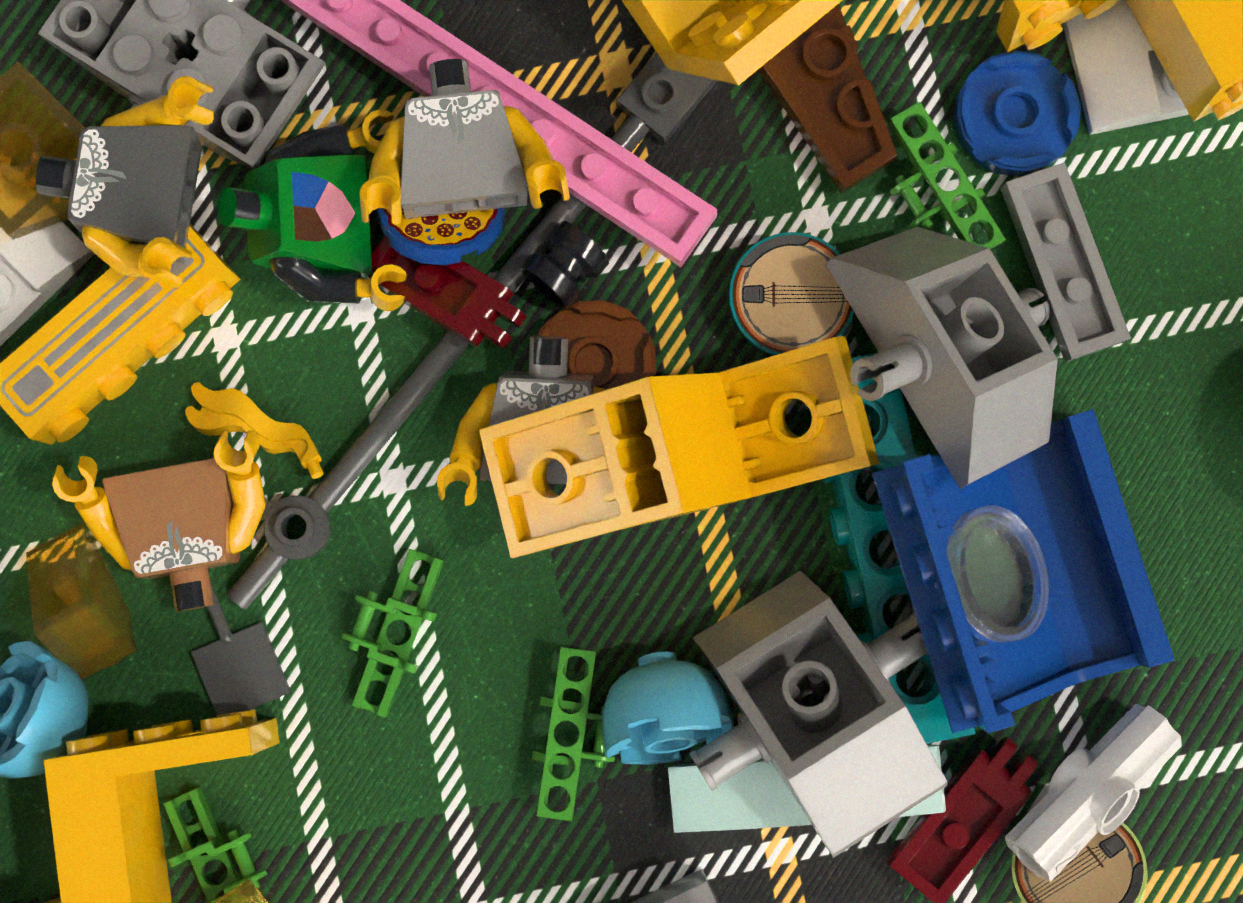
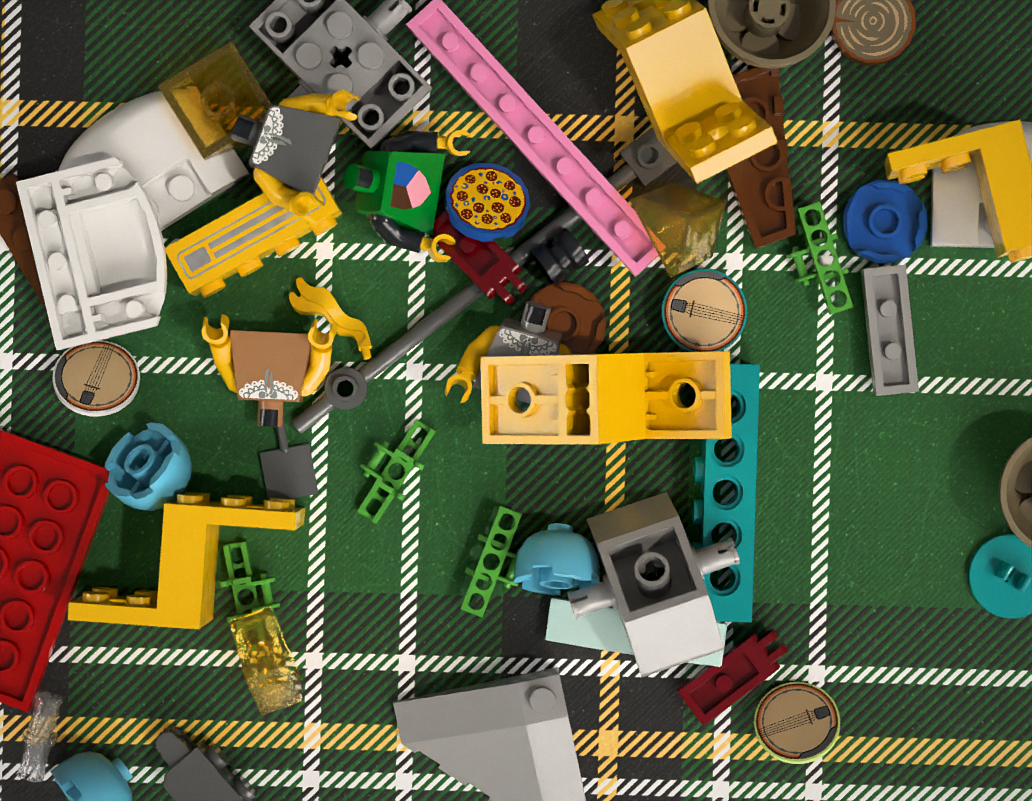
camera: 20 degrees right, 5 degrees up
(78, 603) = (195, 404): clear yellow slope -> none
(459, 154) = (508, 173): torso -> none
(729, 177) = (680, 224): none -> clear yellow slope
(953, 345) = (798, 371): light grey slope -> none
(1022, 575) = (806, 524): blue panel -> none
(1093, 791) = (819, 675): white piece -> none

